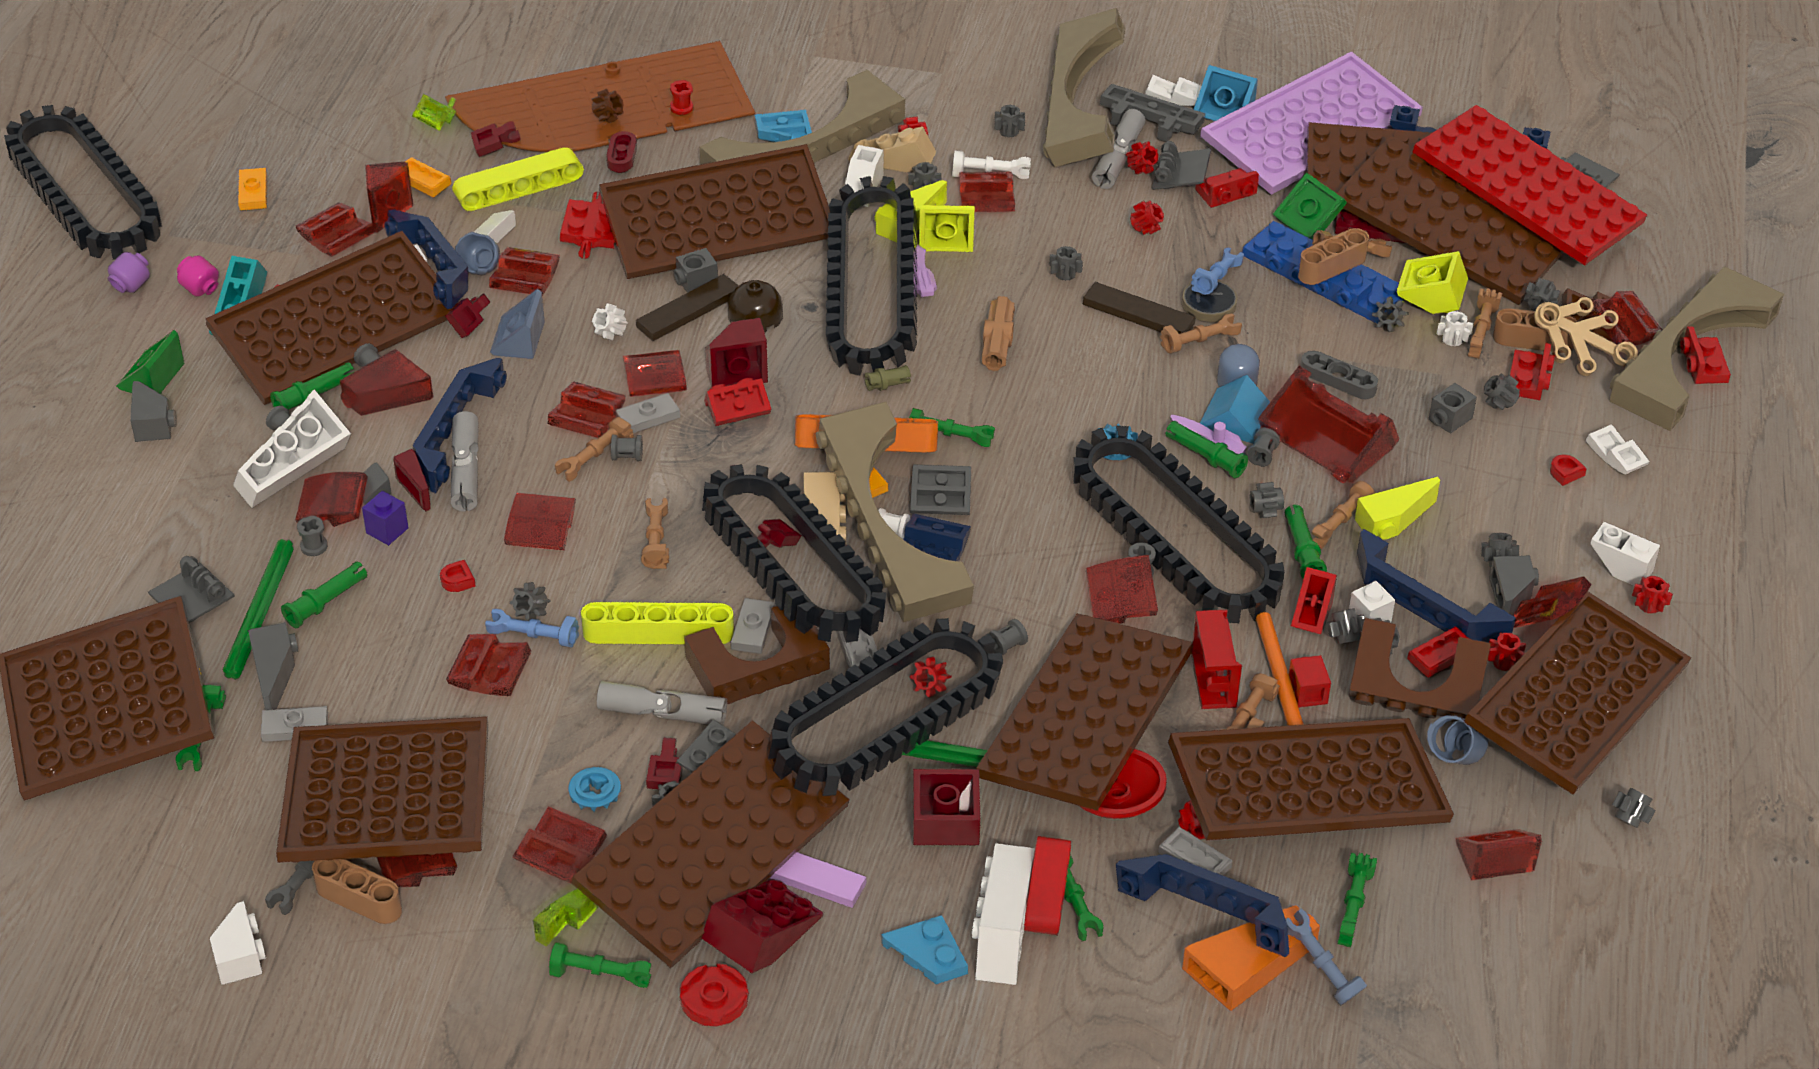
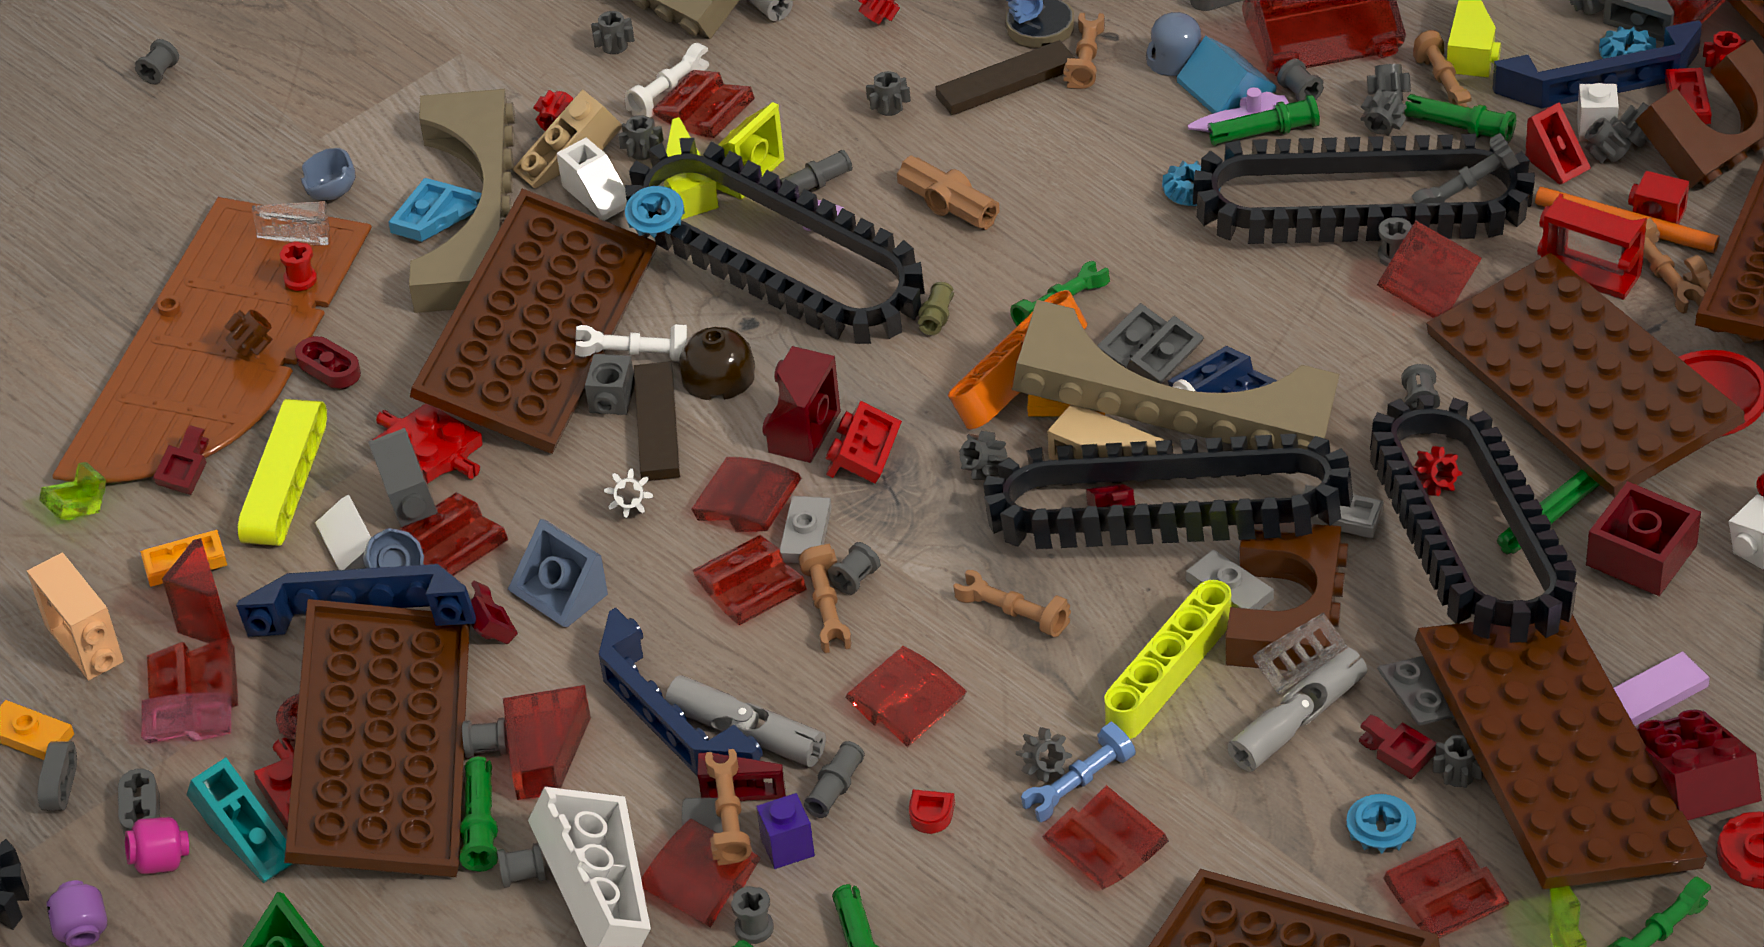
camera: 50 degrees left, 0 degrees up
(221, 256) = (130, 805): none -> dark grey beam
(223, 214) = (57, 775): none -> dark grey beam
(300, 238) = (189, 715): none -> clear pink slope
(339, 139) = (75, 616): none -> light nougat window
(373, 479) = (731, 844): none -> medium nougat piece
(447, 521) = (834, 779): none -> dark grey pin
(536, 223) = (403, 477): none -> dark grey slope
(689, 677) = (1309, 664): none -> clear slope
(718, 78) = (311, 216): none -> clear slope
(736, 262) = (634, 343): none -> white piece
(767, 455) = (982, 455): none -> dark grey gear
(774, 72) = (328, 174): none -> sand blue hair
(822, 205) = (651, 200): none -> dark azure gear
(962, 268) = (818, 173): none -> dark grey pin
(1256, 569) = (1502, 156): none -> dark grey piece
(1299, 489) = (1389, 78): none -> dark grey gear
(1481, 596) = (1615, 41): none -> dark azure gear

